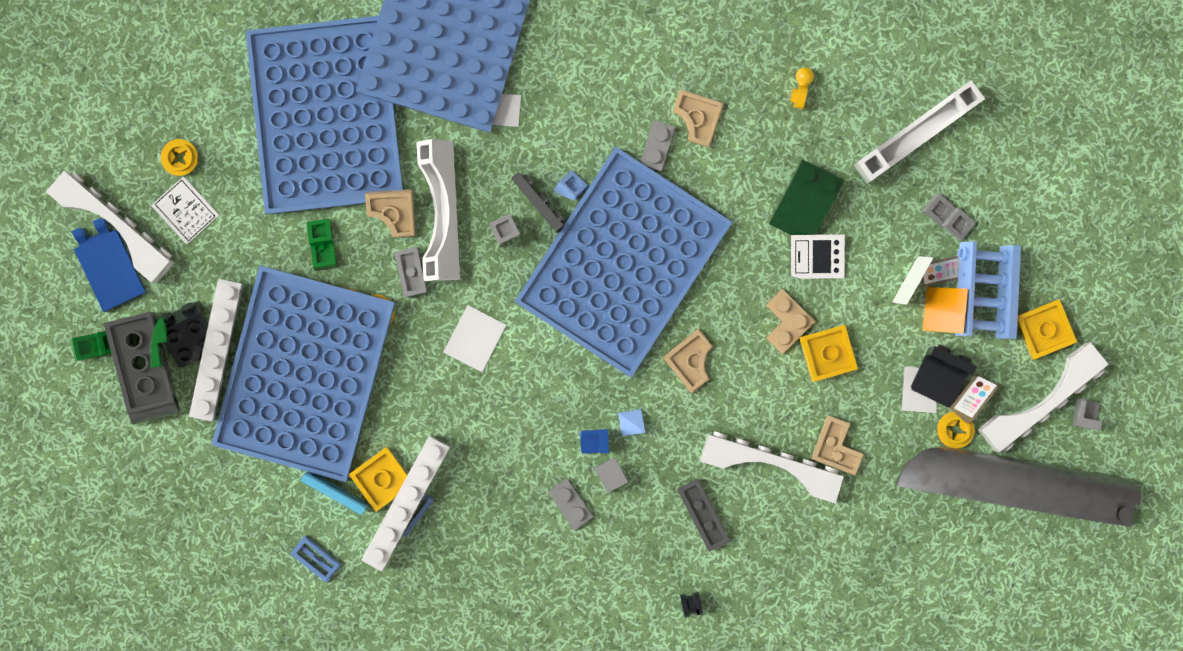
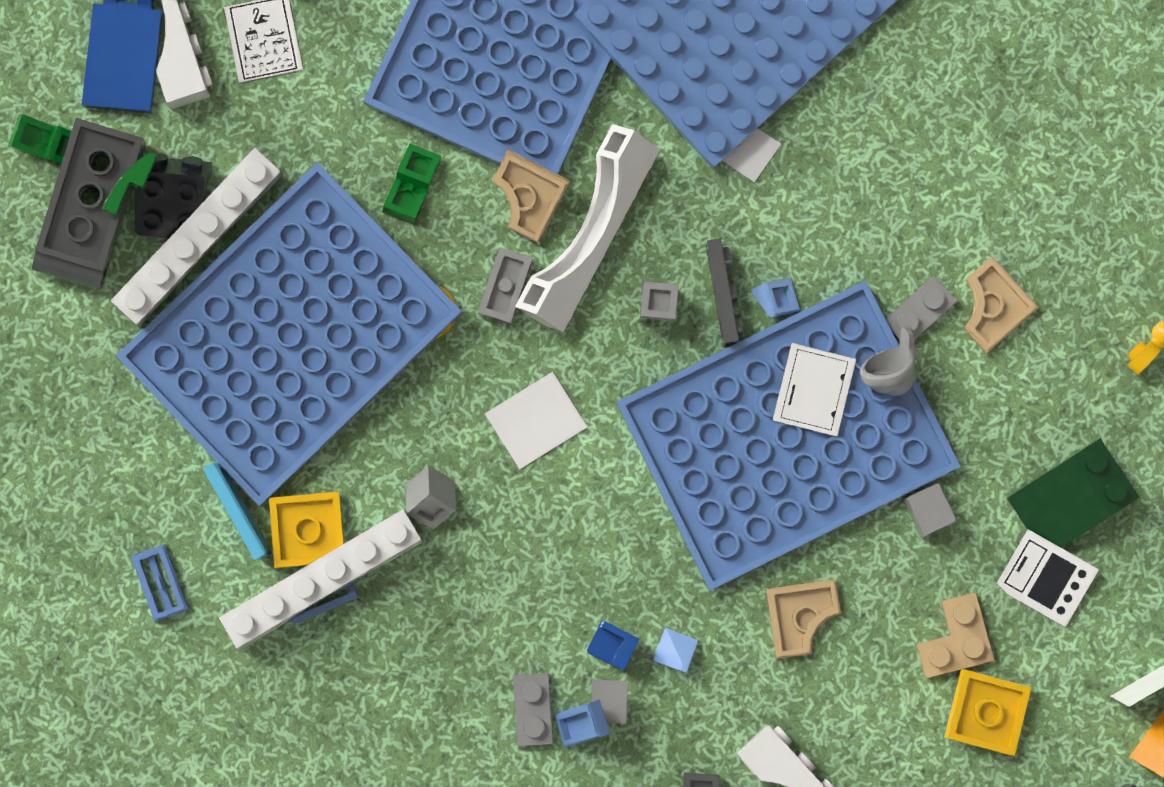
camera: 25 degrees right, 5 degrees down
(440, 418) = (430, 497): none -> light grey panel
(603, 496) = (582, 723): none -> medium blue tile
(623, 227) = (814, 389): none -> white sticker
(661, 189) = (892, 369): none -> light grey hat
(729, 257) = (929, 510): none -> light grey panel

